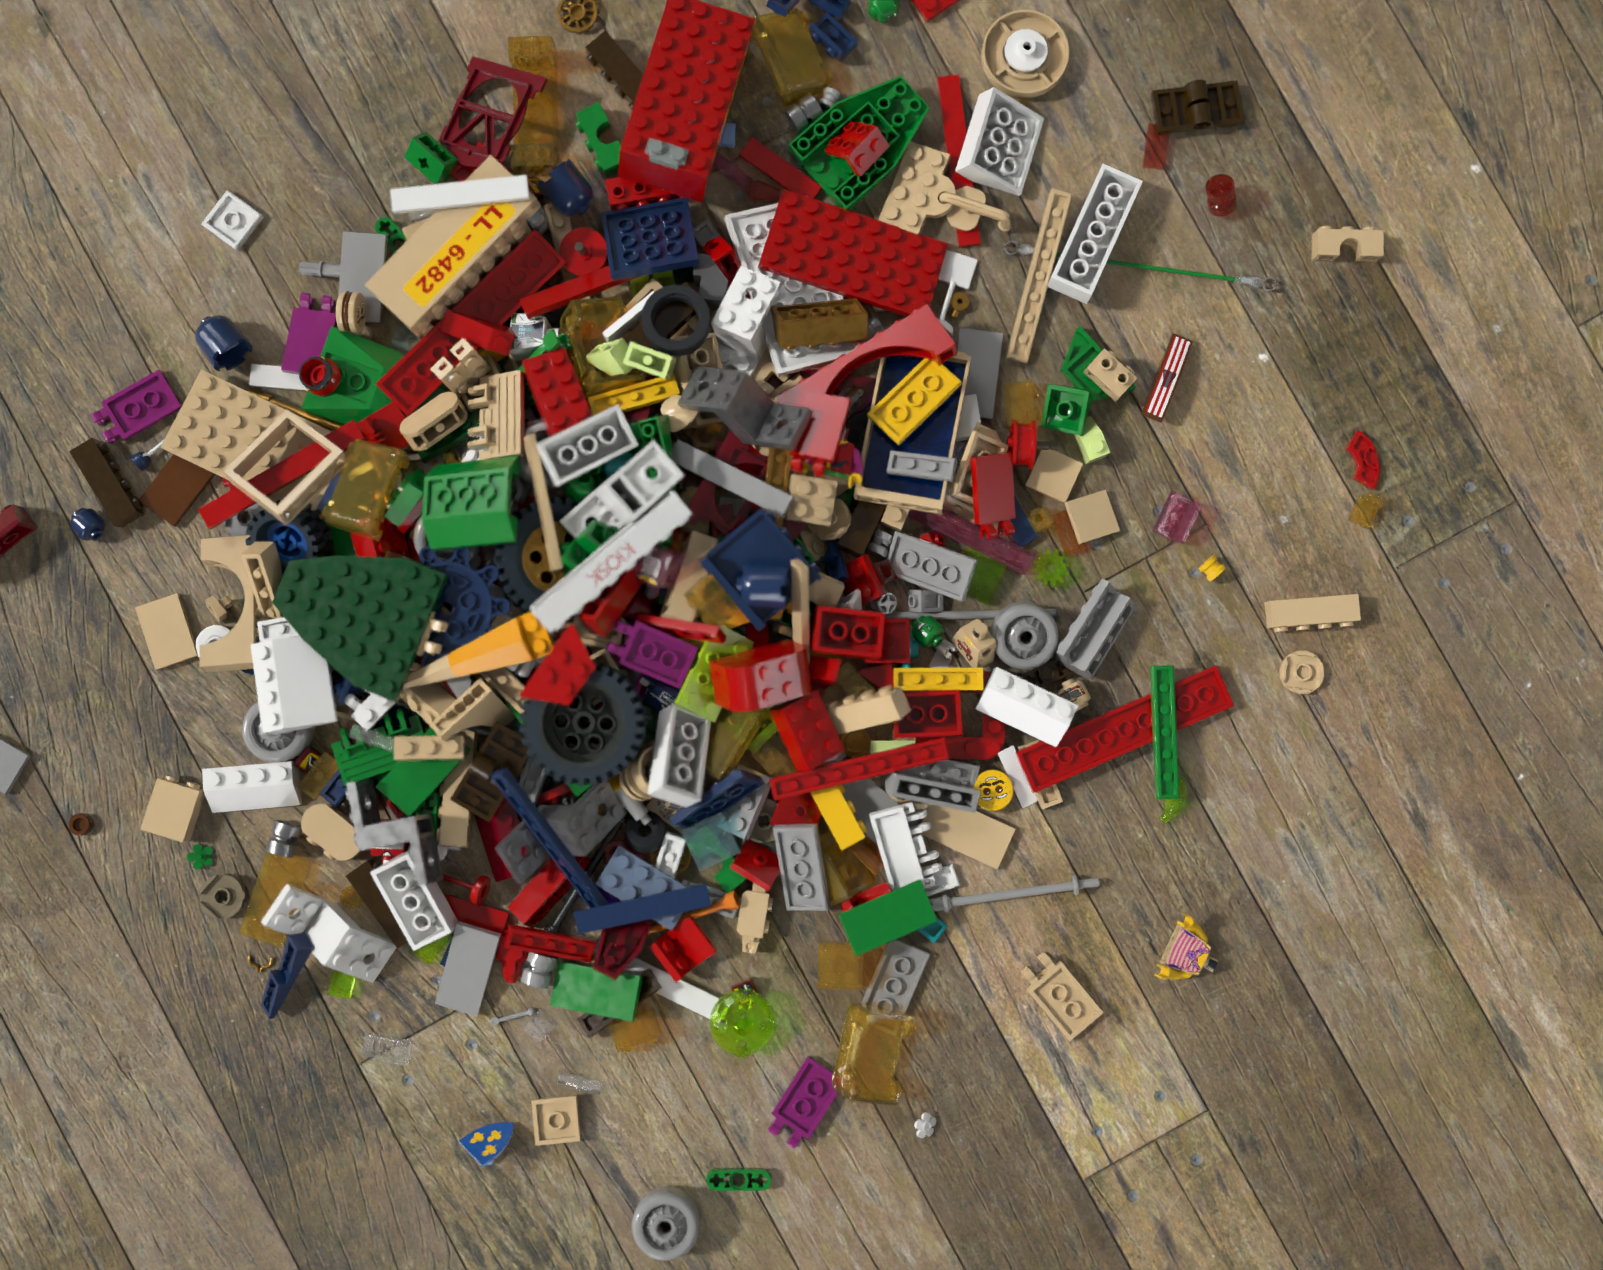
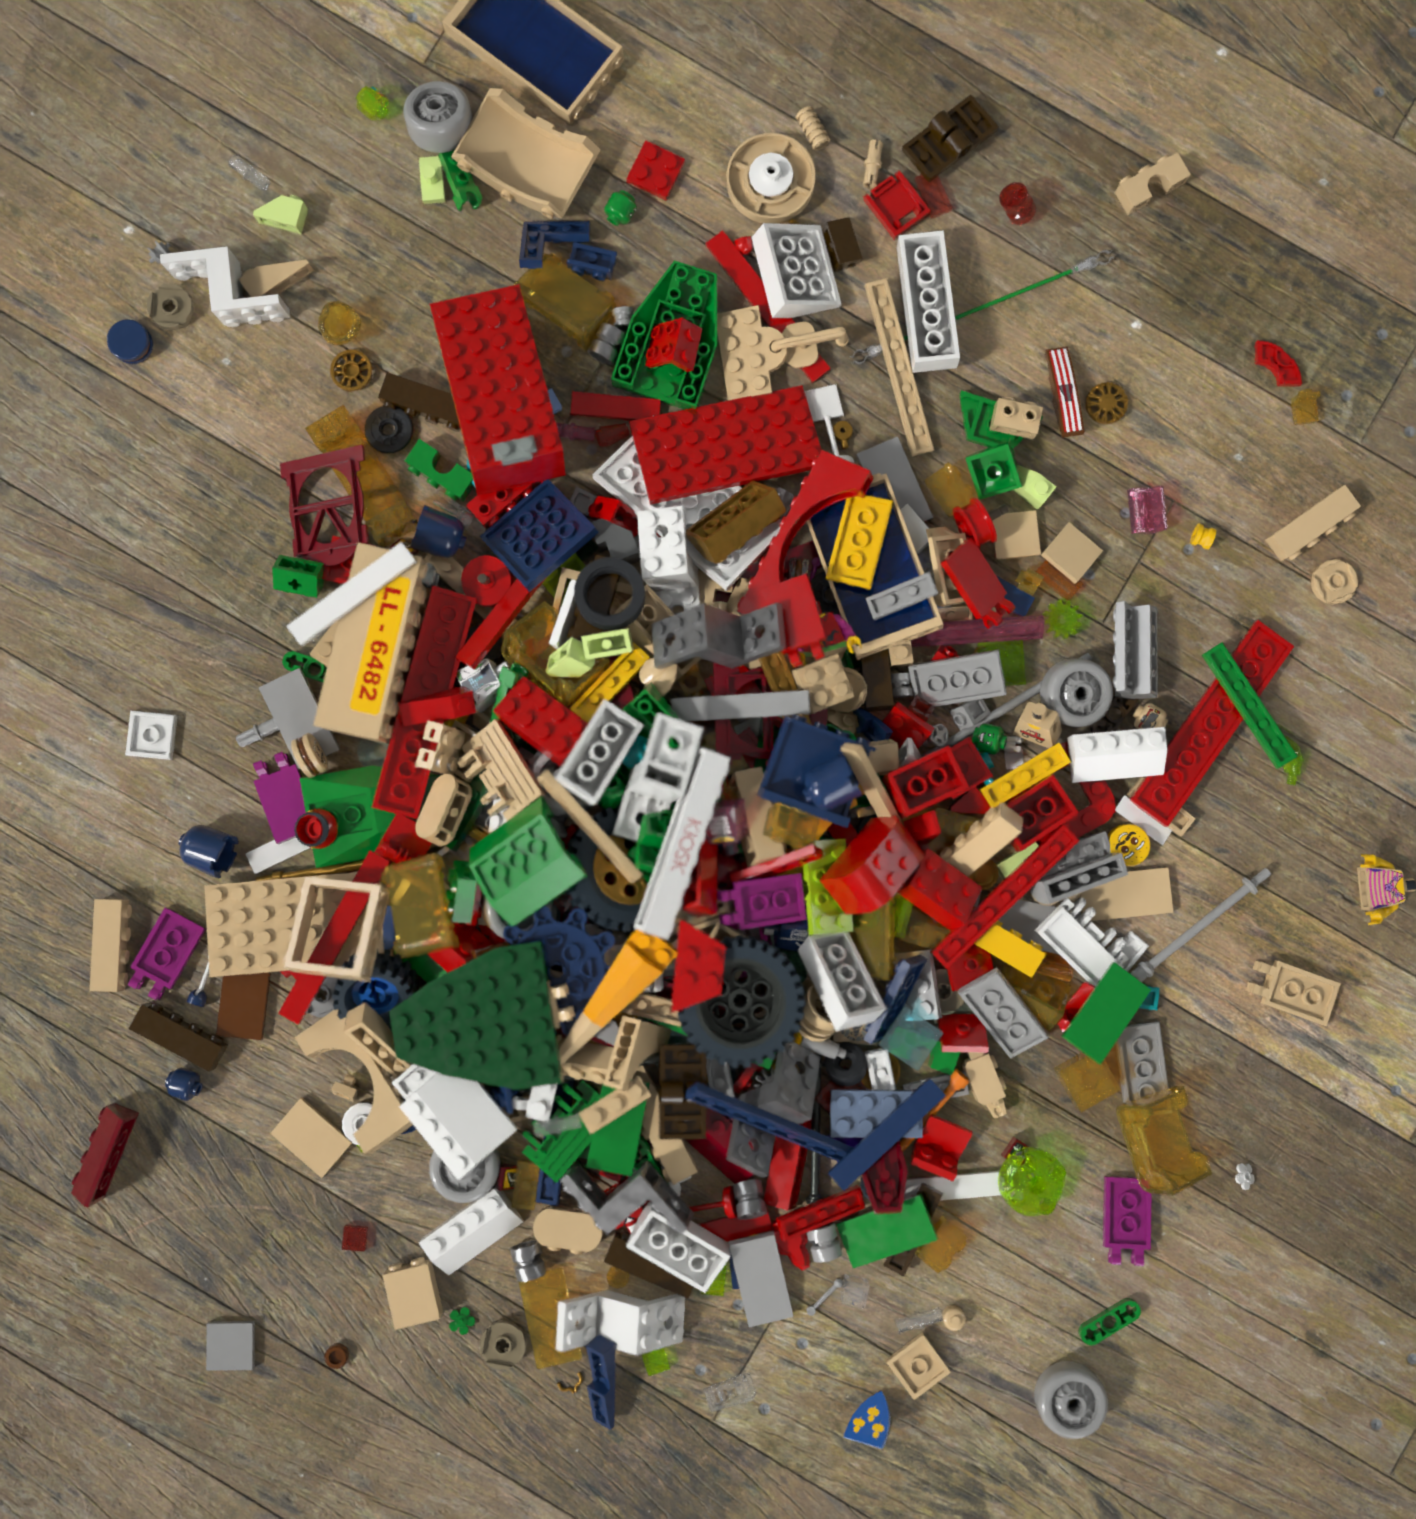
camera: 30 degrees left, 0 degrees up
(95, 374) = (110, 945): none -> tan brick
(153, 736) = (354, 1238): none -> clear red tile
(497, 898) = (750, 1203): none -> flat silver wheel
(579, 93) = (388, 443): none -> black wheel
(610, 1098) = (953, 1317): none -> tan piece
(969, 97) = (744, 245): none -> red hinge
(1052, 144) = (841, 244): none -> dark brown hinge
(1086, 32) = (812, 127): none -> tan piece
(1119, 92) = (872, 164): none -> tan pin
(1119, 135) = (894, 202): none -> red container
(1198, 408) = (1106, 403): none -> pearl gold wheel

